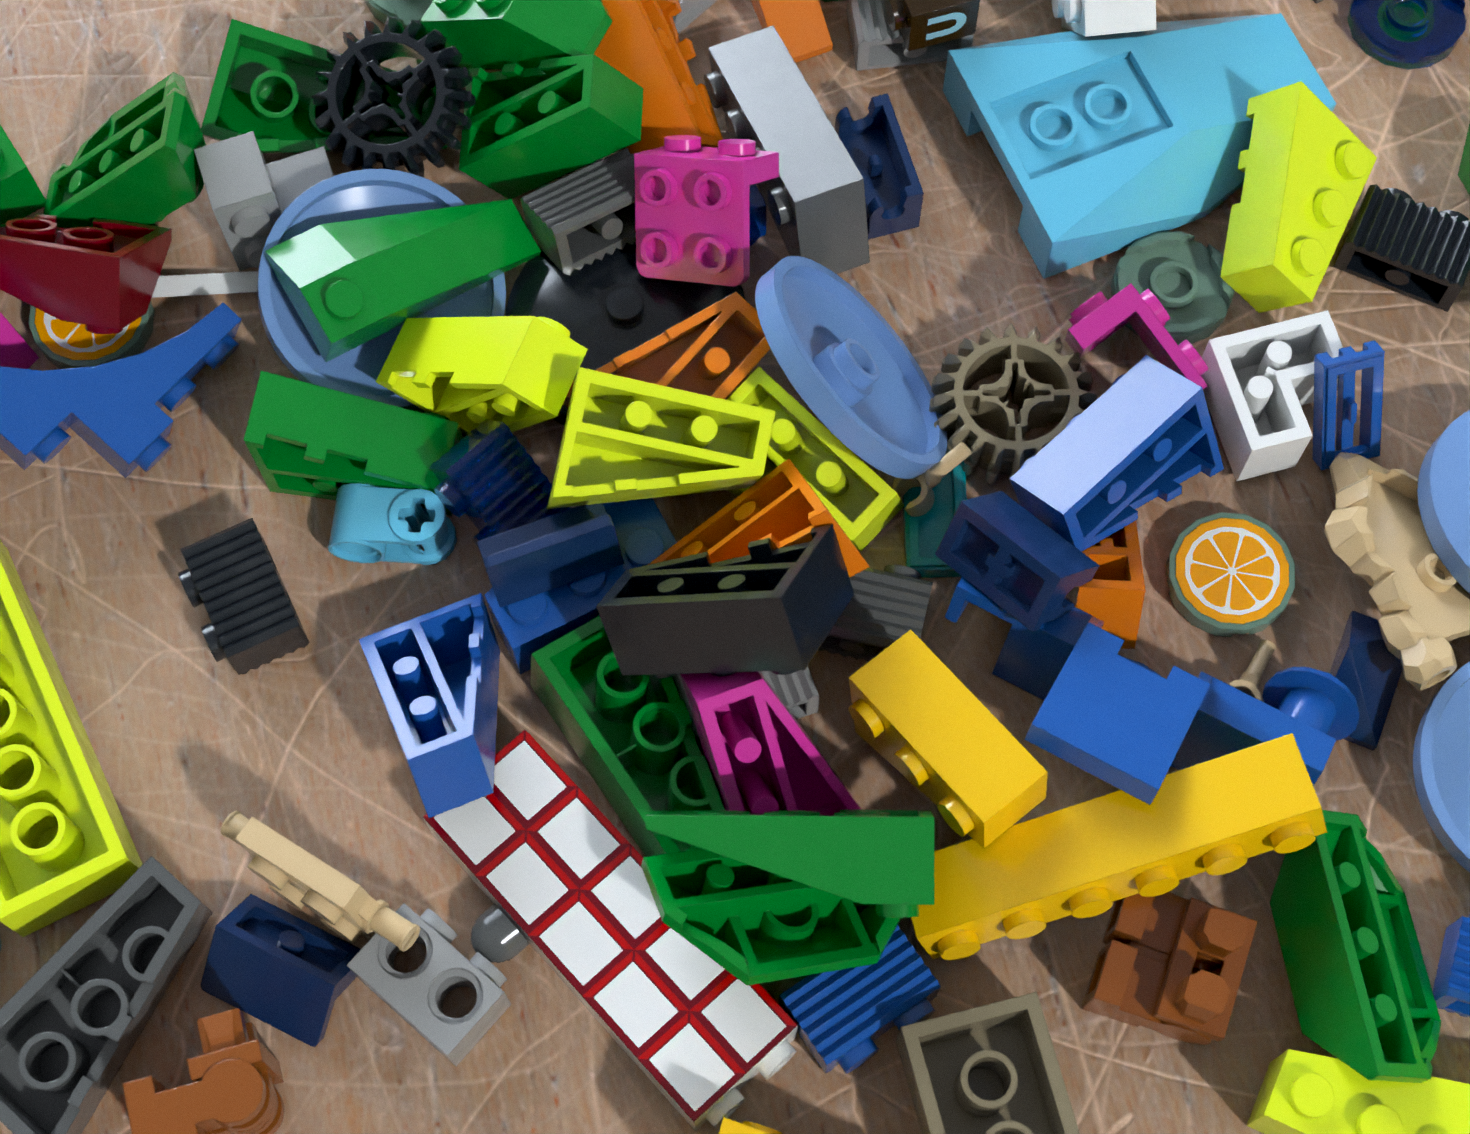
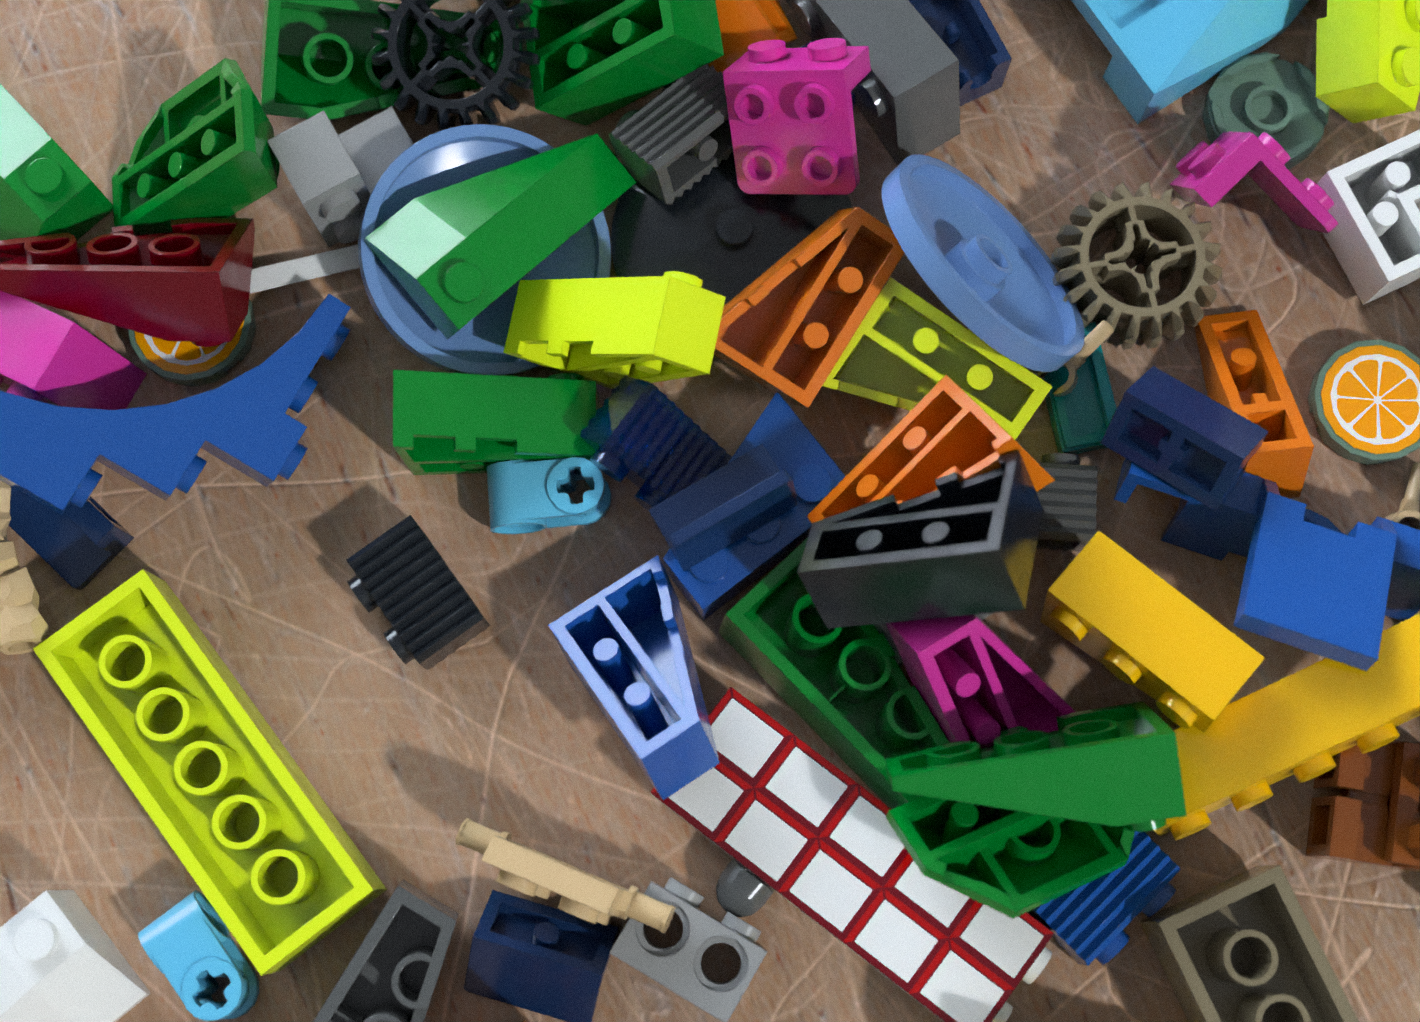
camera: 10 degrees left, 10 degrees up
(653, 442) = (808, 382): neon yellow wedge -> none
(1120, 455) = (1258, 306): wedge -> none

